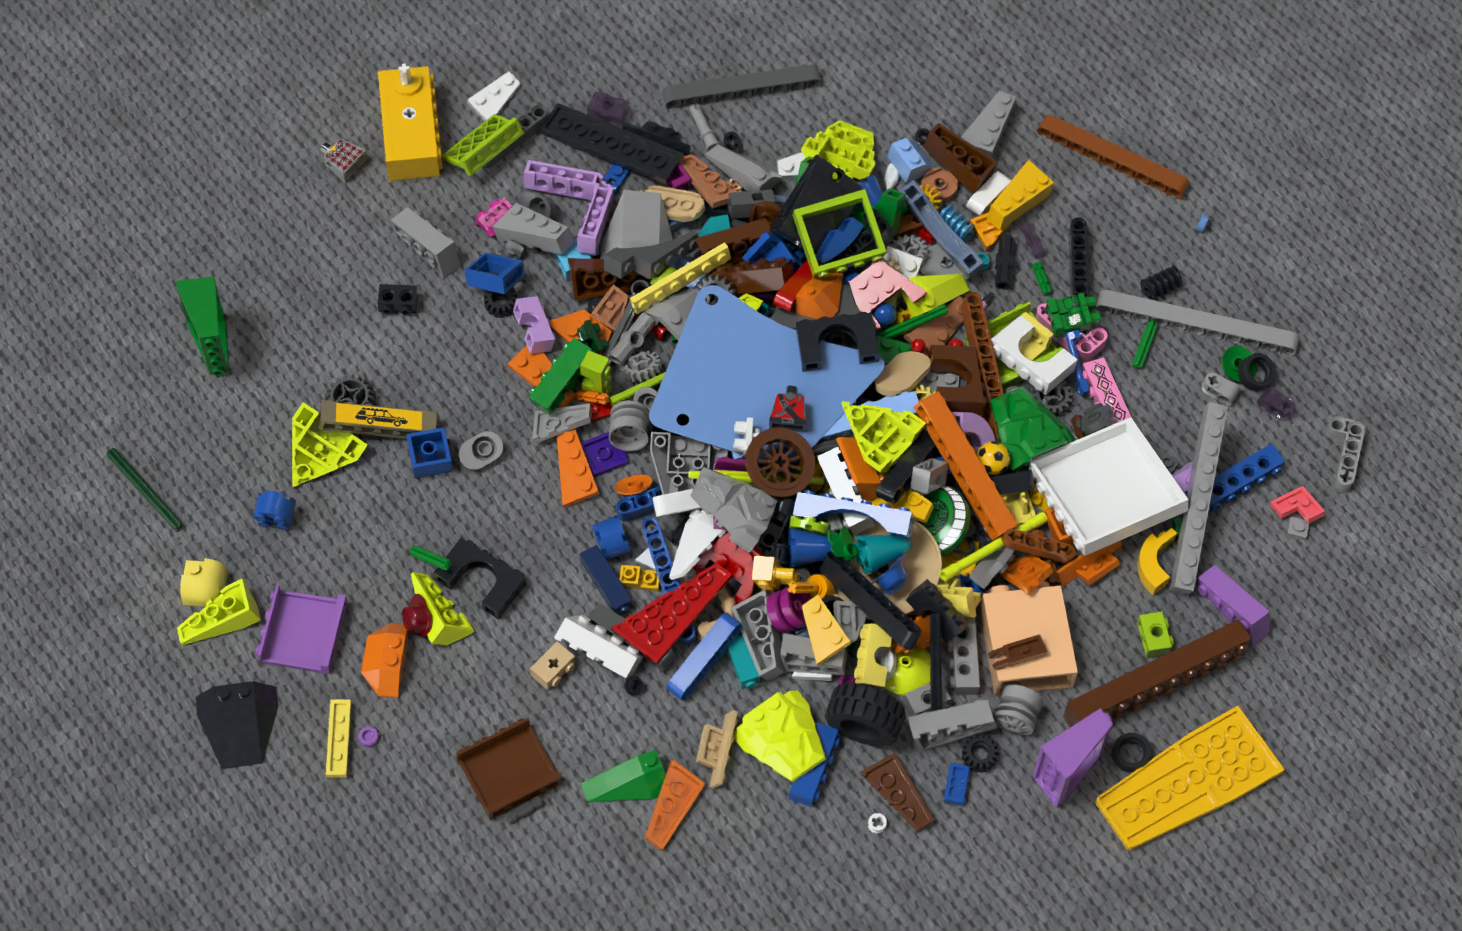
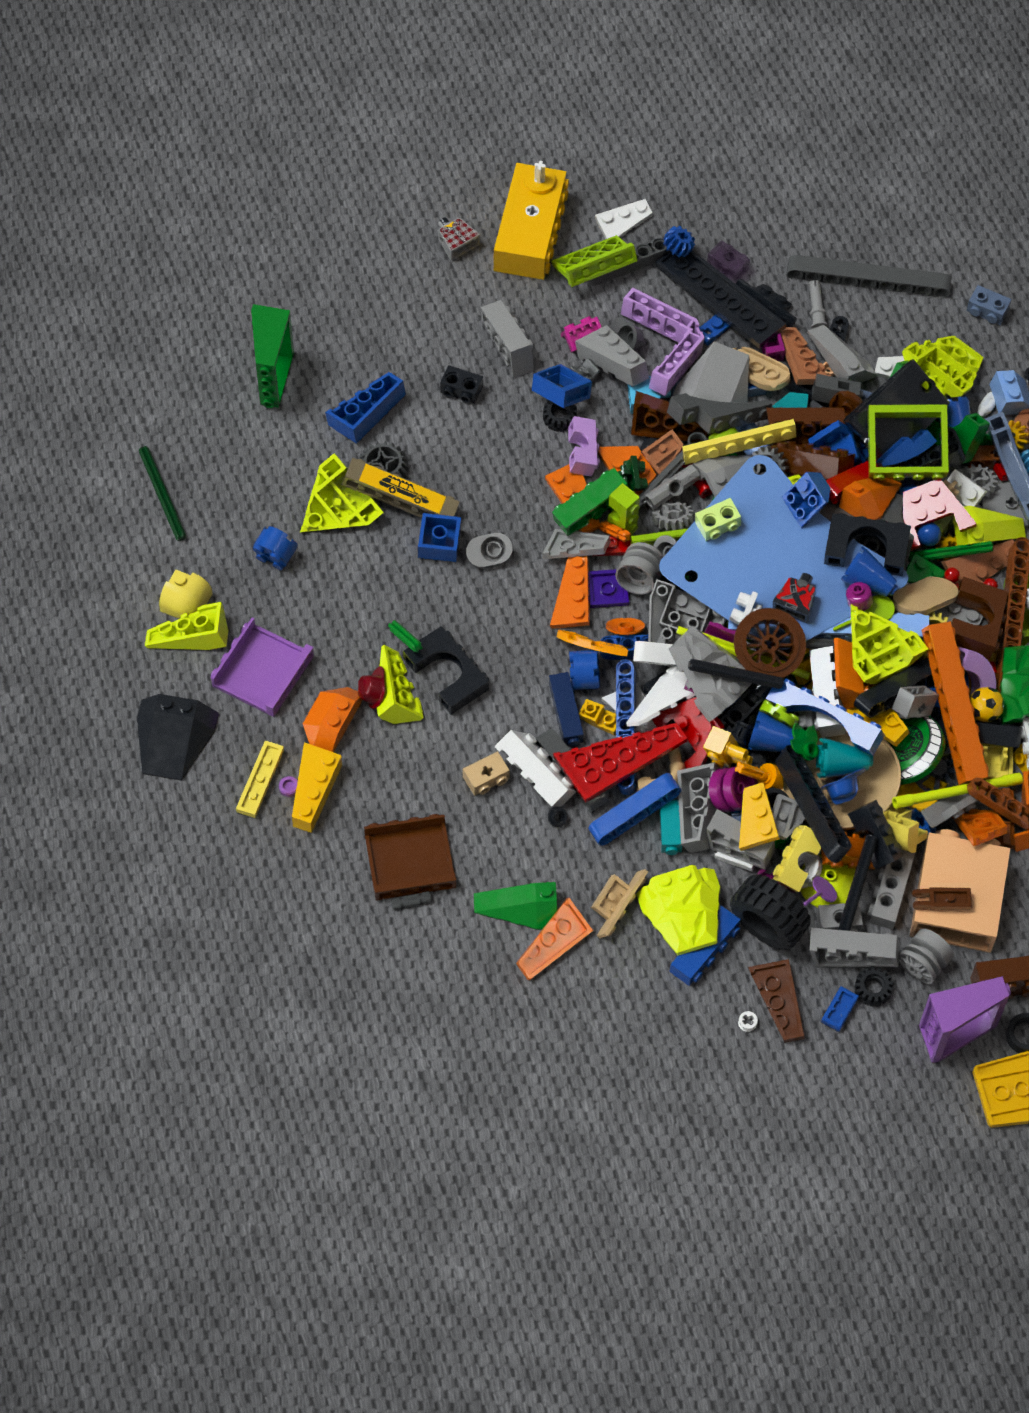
camera: 20 degrees right, 0 degrees up
(312, 353) = (366, 408): none -> blue wedge
(393, 720) = (315, 780): none -> yellow wedge
(556, 103) = (679, 241): none -> blue gear
(617, 511) = (583, 641): none -> light orange tile
(687, 356) = (715, 515): none -> yellowish green brick
(759, 500) = (735, 673): none -> black axle
(766, 313) = (807, 497): none -> blue slope
(847, 392) = (859, 595): none -> magenta head
(849, 369) = (868, 570): none -> blue cone
(861, 82) = (988, 305): none -> sand blue brick
(864, 395) = (881, 606): none -> lime piece
(906, 678) = (823, 889): none -> medium lavender piece

